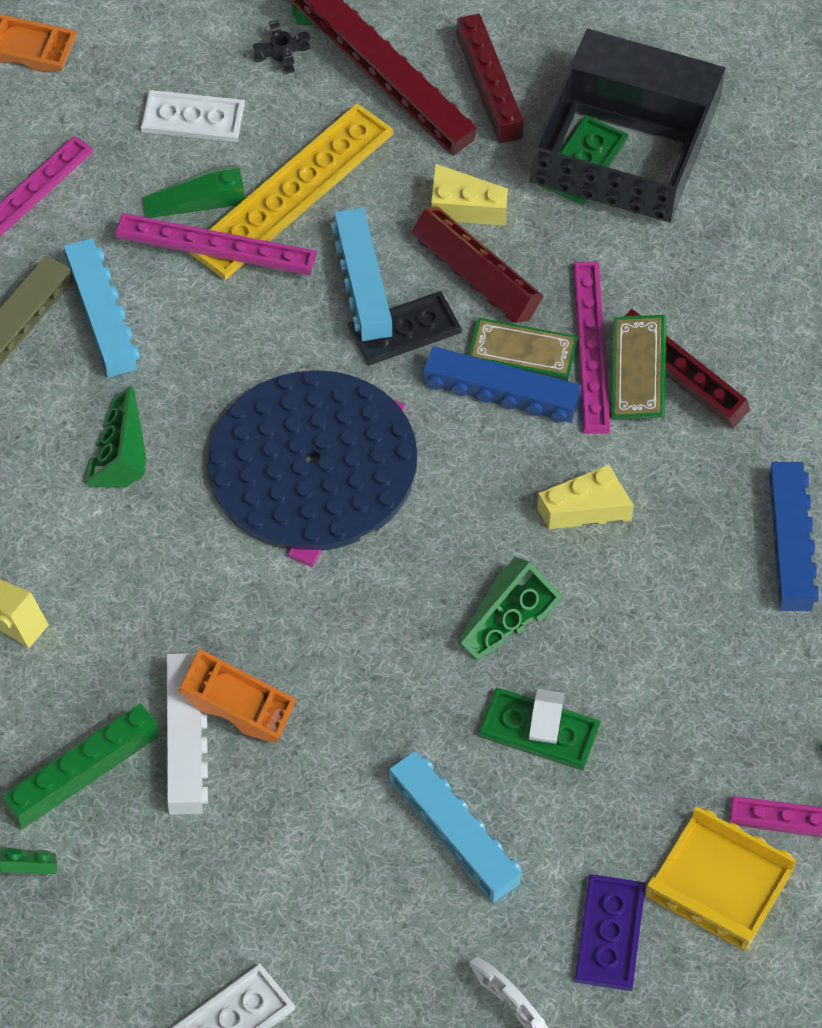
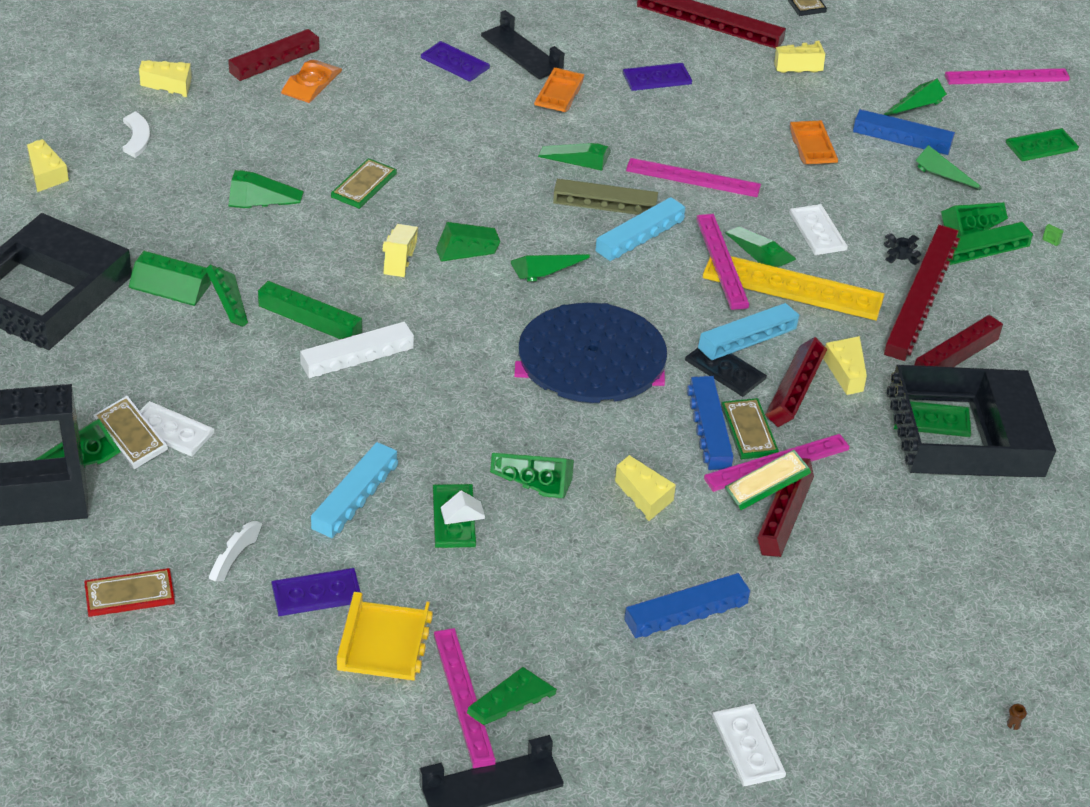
camera: 65 degrees right, 15 degrees down
(29, 521) = (466, 241): none -> green wedge
(237, 697) = (391, 359): orange slope -> none

